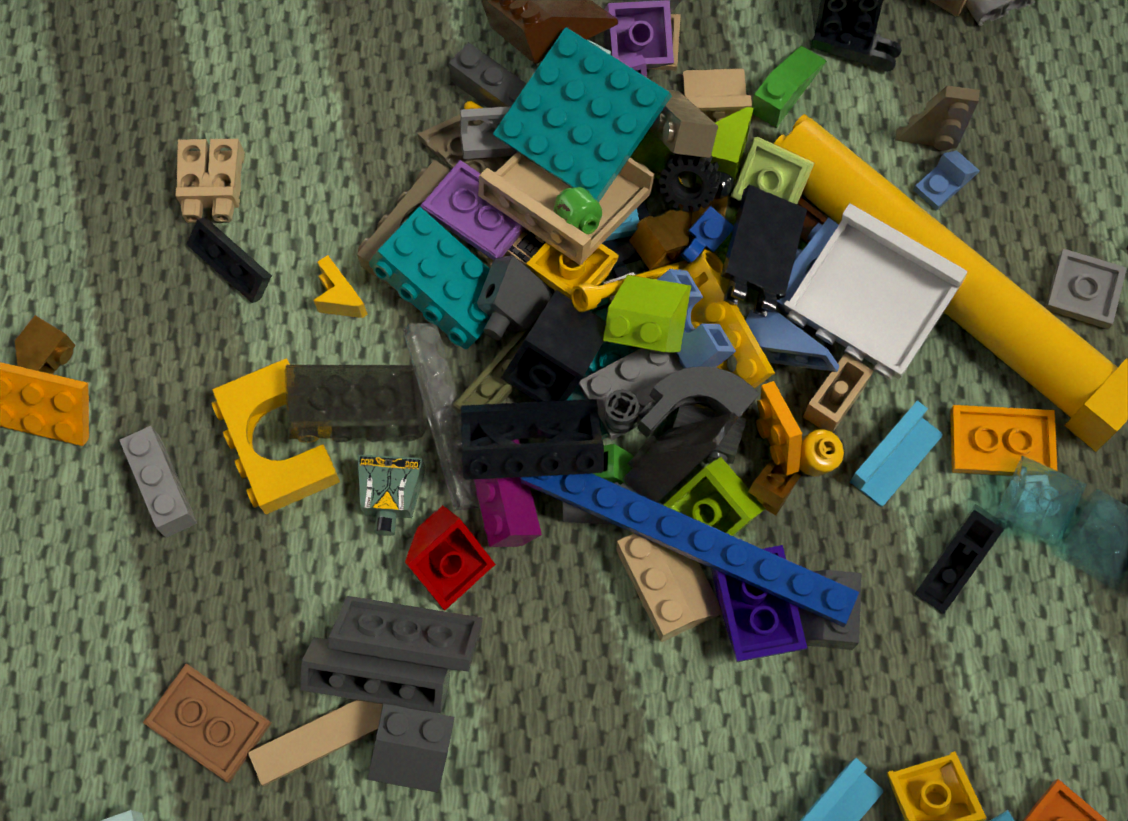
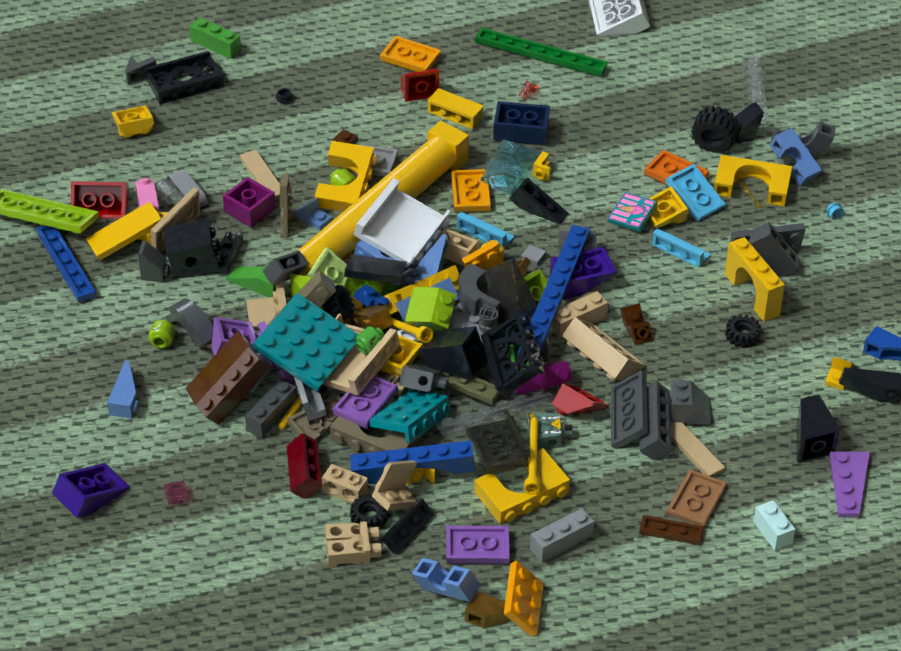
camera: 100 degrees left, 25 degrees down
(111, 281) = (457, 583): none -> medium blue arch
(147, 666) = (671, 530): none -> reddish brown tile
(174, 357) = (477, 544): none -> medium lavender plate
(248, 439) = (532, 484): none -> yellow piece
(258, 194) = (368, 504): none -> black tyre
(283, 241) = (391, 490): none -> tan bracket
(321, 177) = (344, 484): none -> tan brick
(331, 314) = (451, 457): none -> blue arch
(365, 122) = (304, 466): none -> dark red brick
(568, 618) = (602, 349): none -> tan slope
(629, 689) = (635, 325): none -> reddish brown slope
(770, 100) = (283, 266): none -> dark grey brick
(827, 532) = (534, 254): none -> light grey tile
(929, 732) = (632, 211): none -> tile
(971, 65) = (249, 201): none -> magenta brick
(1026, 227) = (341, 177): none -> lime head
(1050, 109) = (260, 171): none -> tan tile
(1060, 254) = (352, 157): none -> yellow arch
(1070, 577) = (541, 167): none -> yellow bracket

